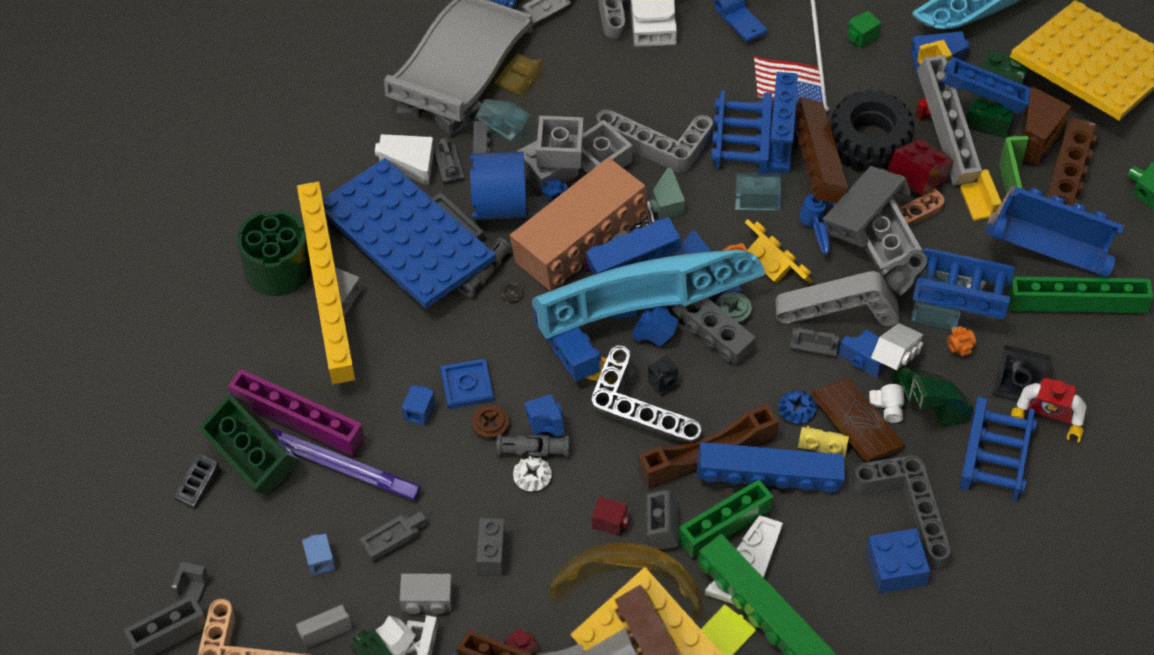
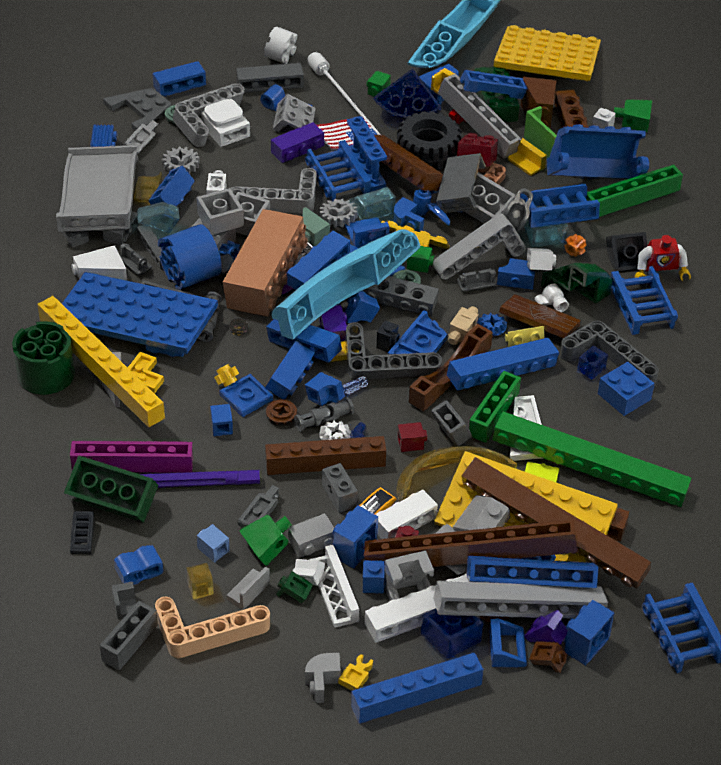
camera: 30 degrees left, 10 degrees down
(227, 547) = (138, 565): none -> blue brick
(276, 595) = (200, 581): none -> clear yellow brick
(368, 308) = (142, 367): none -> yellow plate
(373, 575) = (267, 537): none -> green torso
(456, 351) = (226, 375): none -> yellow gear
(465, 612) = (352, 533): none -> blue brick
(501, 499) = (317, 455): none -> reddish brown brick
(516, 585) = (378, 501): none -> slope
(528, 375) = (290, 371): none -> blue brick
(539, 87) = (173, 187): none -> blue brick
(541, 613) = (412, 511): none -> white brick
(553, 486) = (358, 431): none -> clear blue arm
(574, 51) = (180, 157): none -> light grey gear
(585, 422) = (354, 385): none -> clear blue axle
(592, 100) = (216, 182): none -> white piece
(613, 332) = (334, 321): none -> dark purple brick
(698, 394) = (421, 337): none -> blue wing
(708, 187) = (339, 212): none -> light grey gear
(720, 74) = (297, 142): none -> dark purple brick
(726, 225) = (366, 231): none -> blue bracket
(738, 37) = (293, 112): none -> light grey bracket
(759, 393) = (462, 324): none -> tan piece
(766, 287) = (421, 260): none -> green brick
(783, 220) = (406, 215): none -> blue brick
(882, 63) = (407, 97): none -> clear blue brick
(884, 500) = (592, 362): none -> clear blue brick
(1106, 182) = (604, 118): none -> white brick

